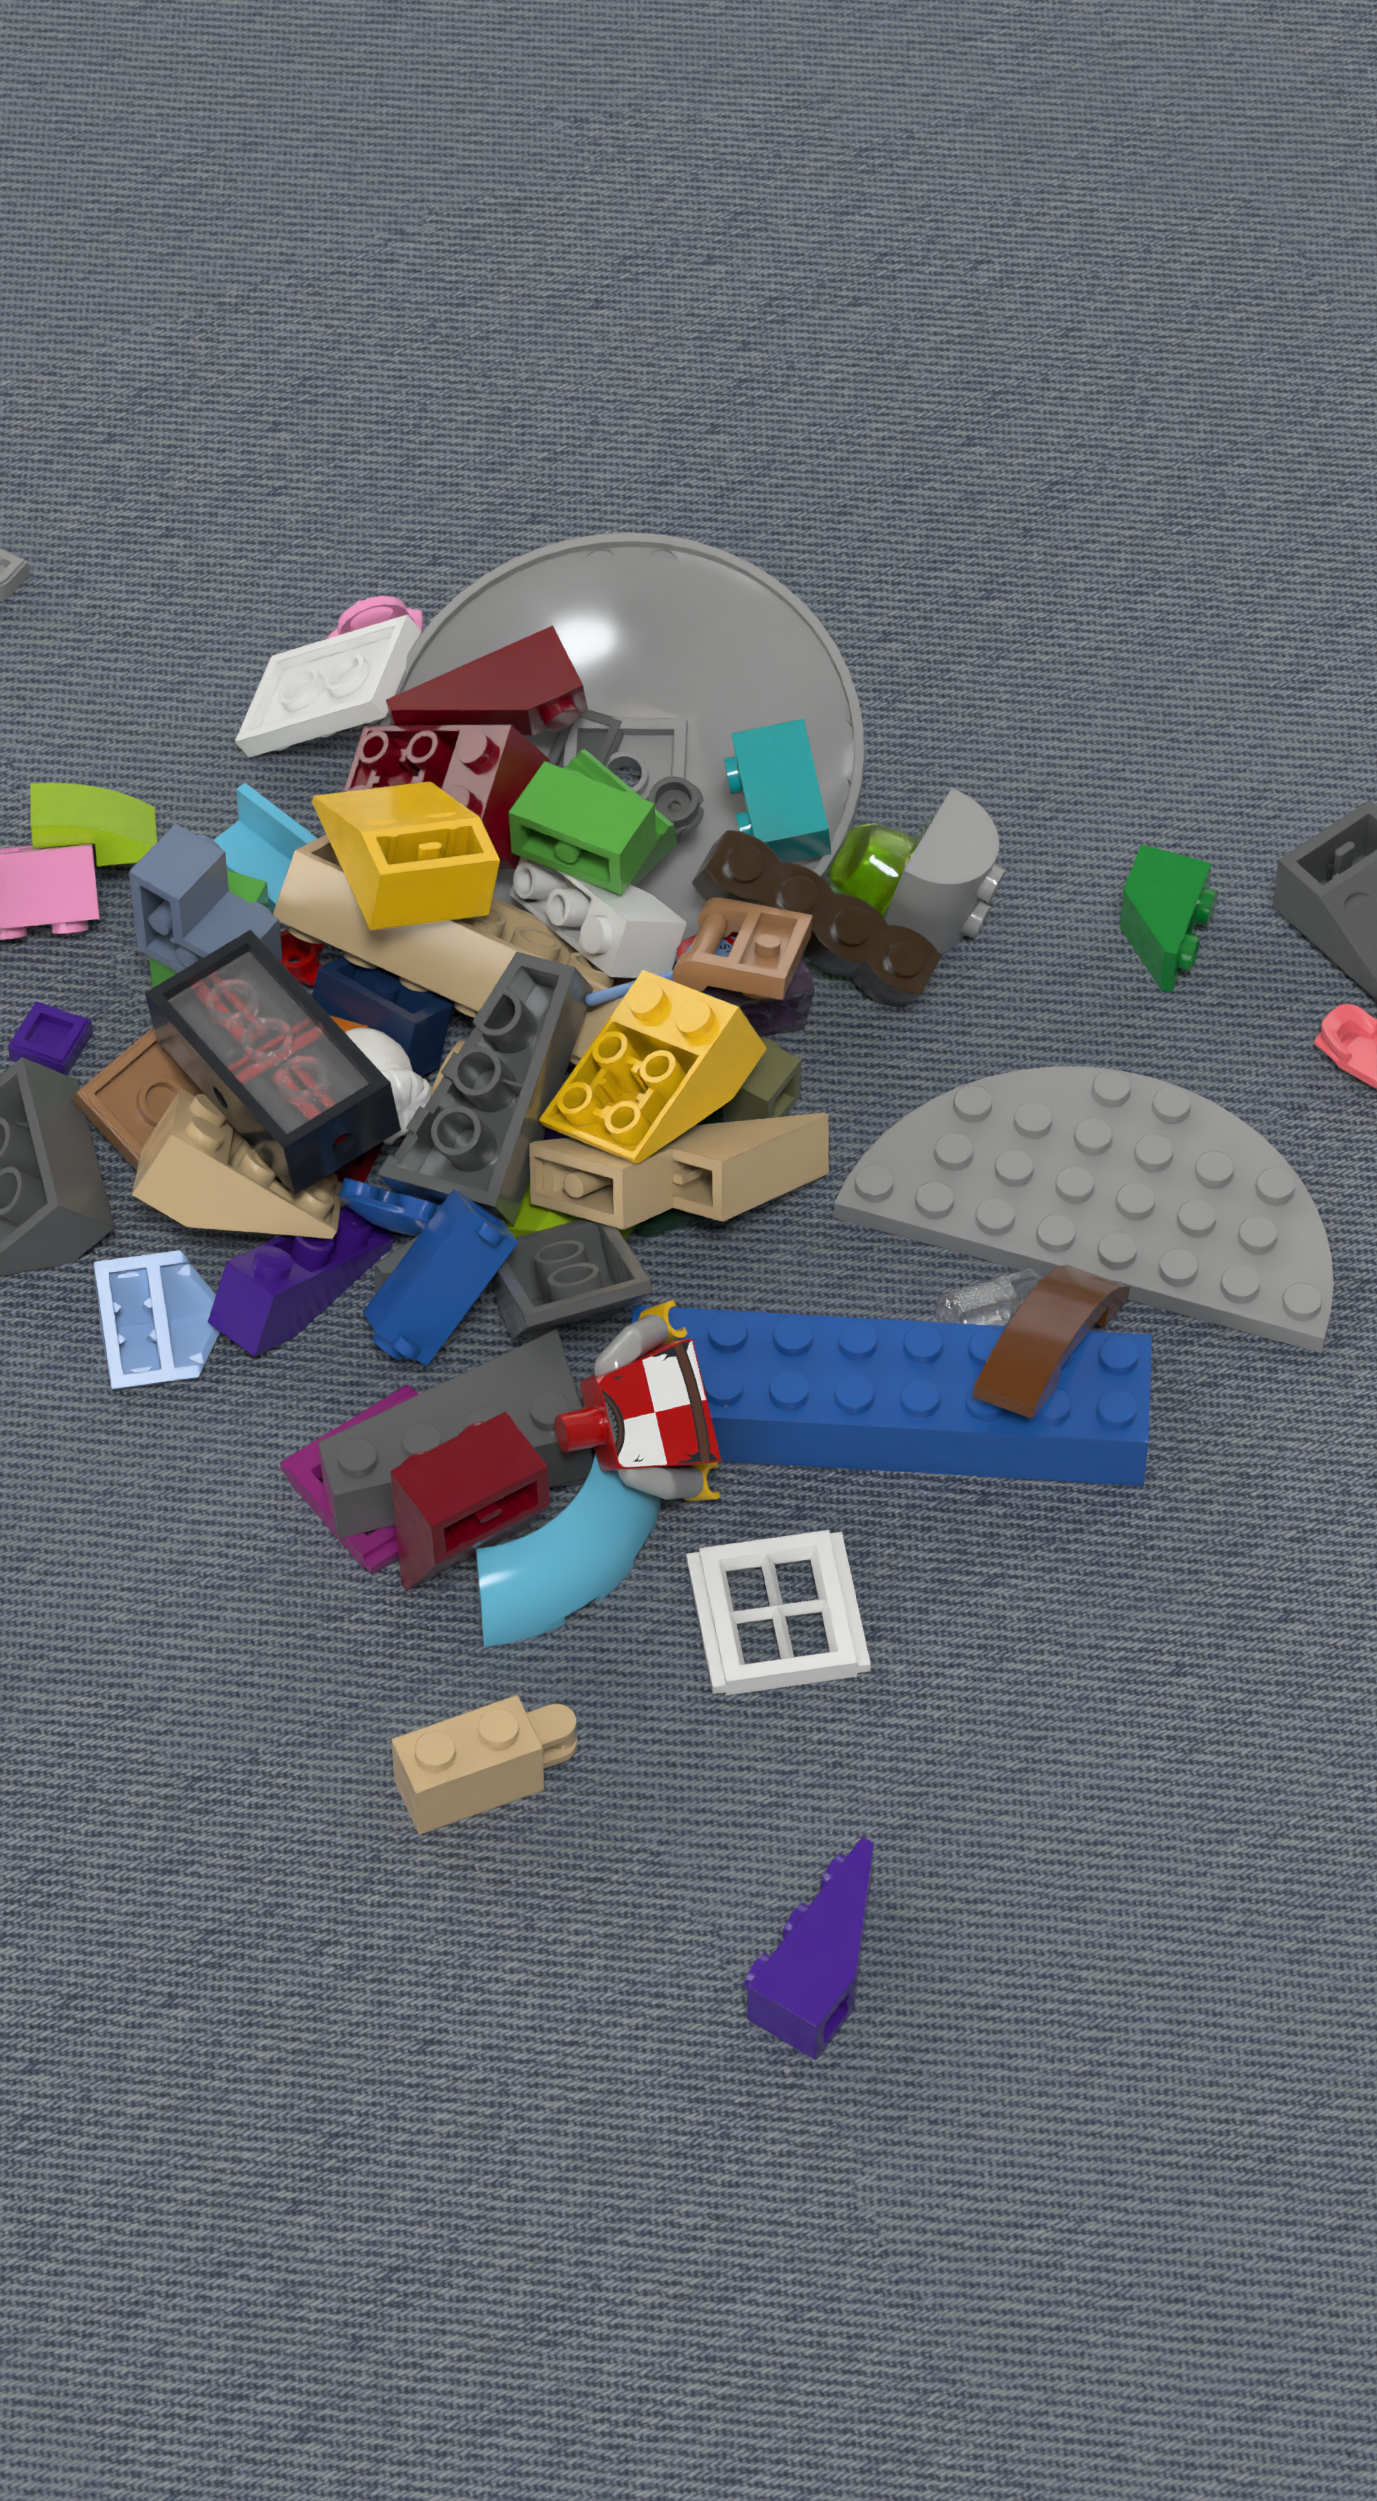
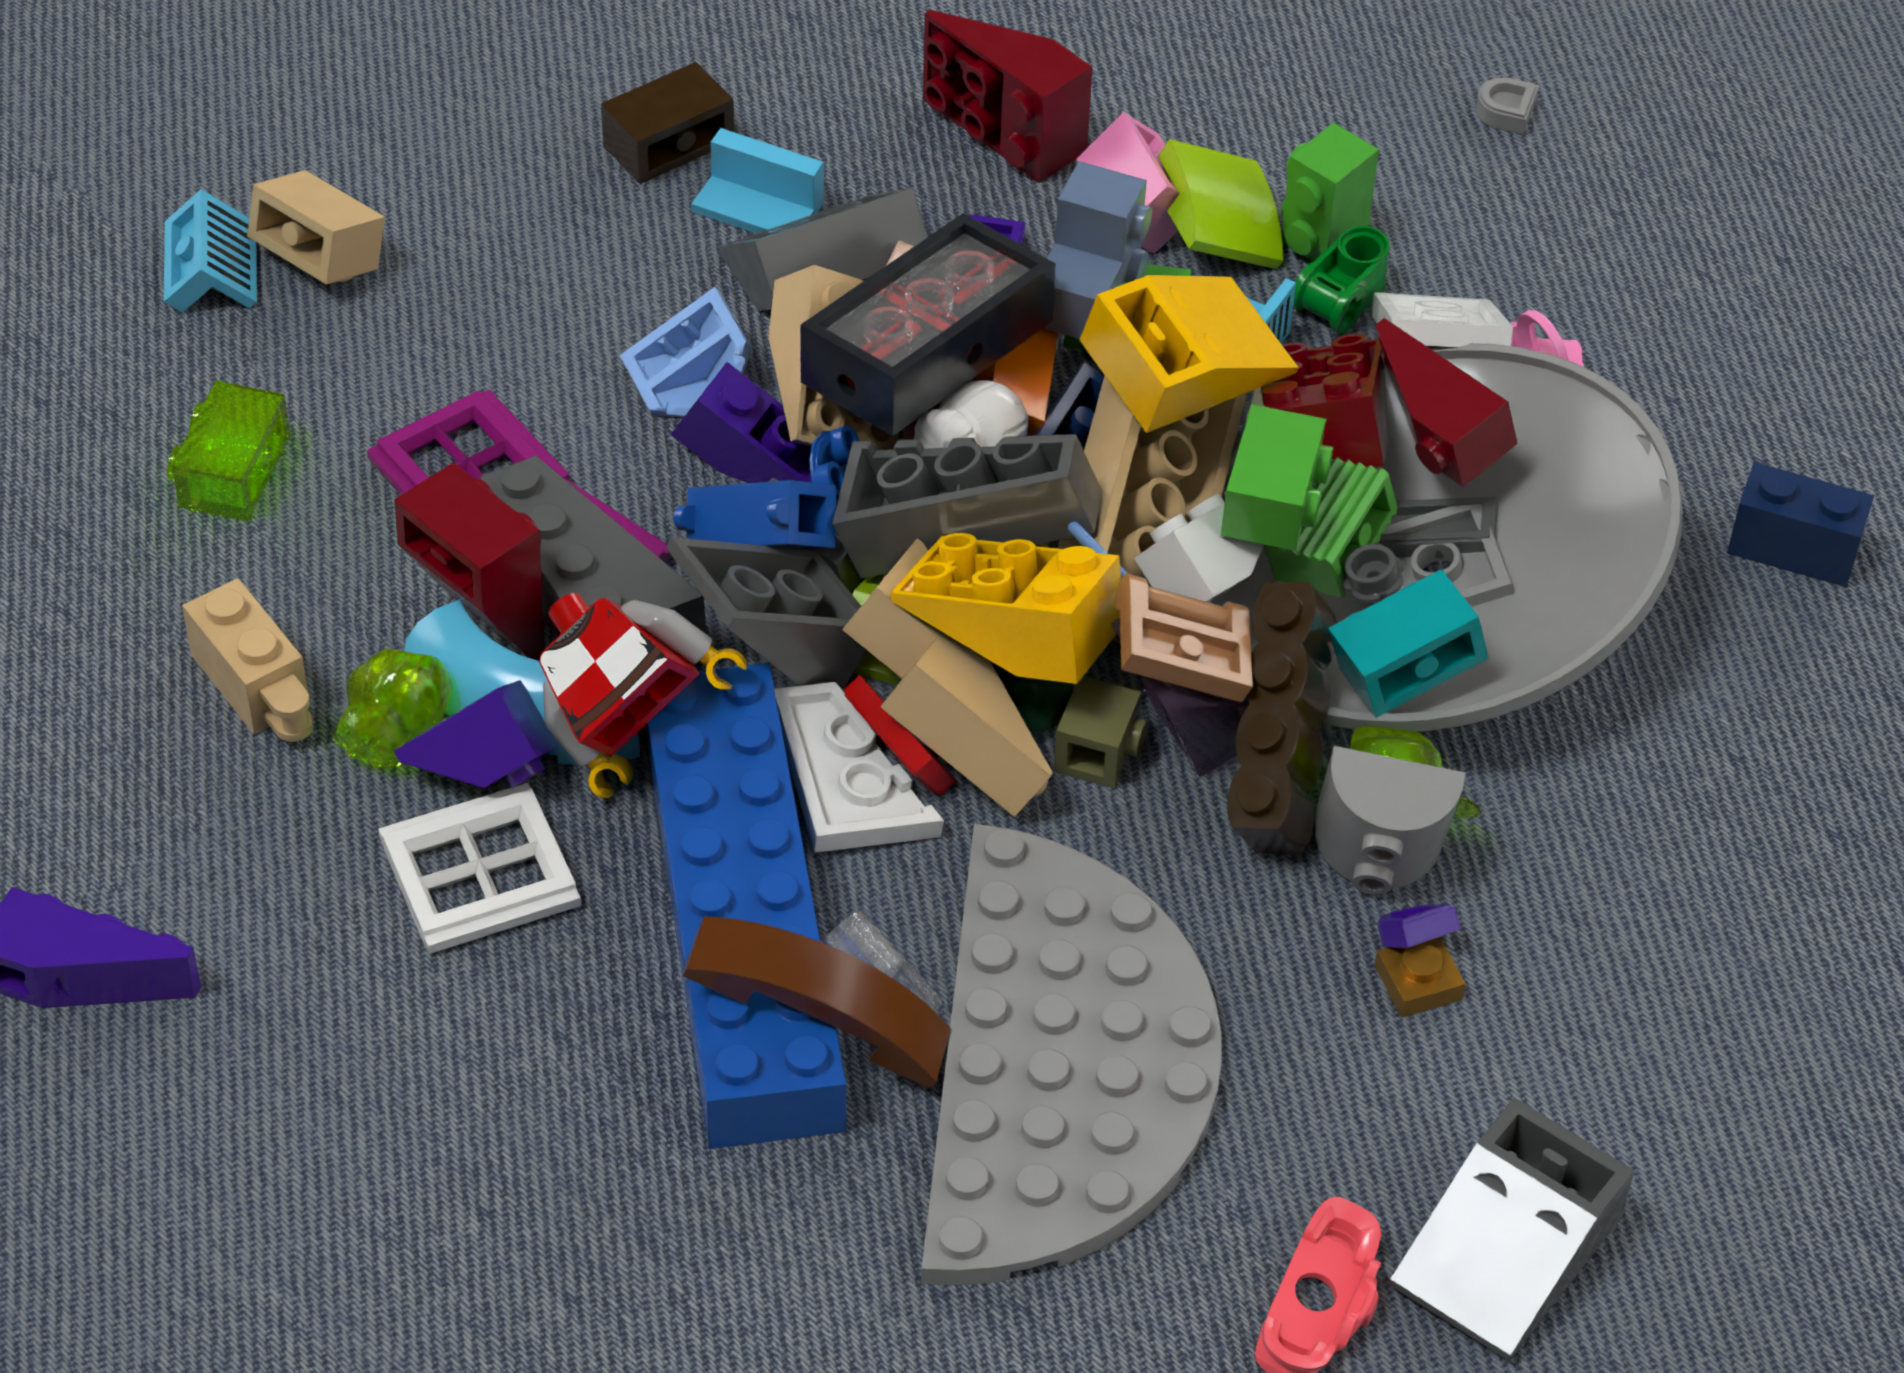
camera: 75 degrees right, 5 degrees down
(119, 730) = (1327, 190): none -> bright green brick
(160, 1750) = (230, 450): none -> clear neon green brick
(216, 755) = (1344, 277): none -> green piece
(252, 1593) = (509, 434): none -> magenta piece
(581, 1644) = (390, 704): none -> clear neon green hair
(645, 1573) = (485, 741): none -> dark purple slope
(653, 491) = (1800, 524): none -> dark blue brick
(717, 1237) = (901, 741): none -> red tile
(767, 1279) = (842, 776): none -> white wing
(1039, 902) = (1417, 924): none -> dark purple tile
(1079, 918) = (1420, 976): none -> pearl gold plate
(1162, 910) = (1440, 1038): green slope -> none

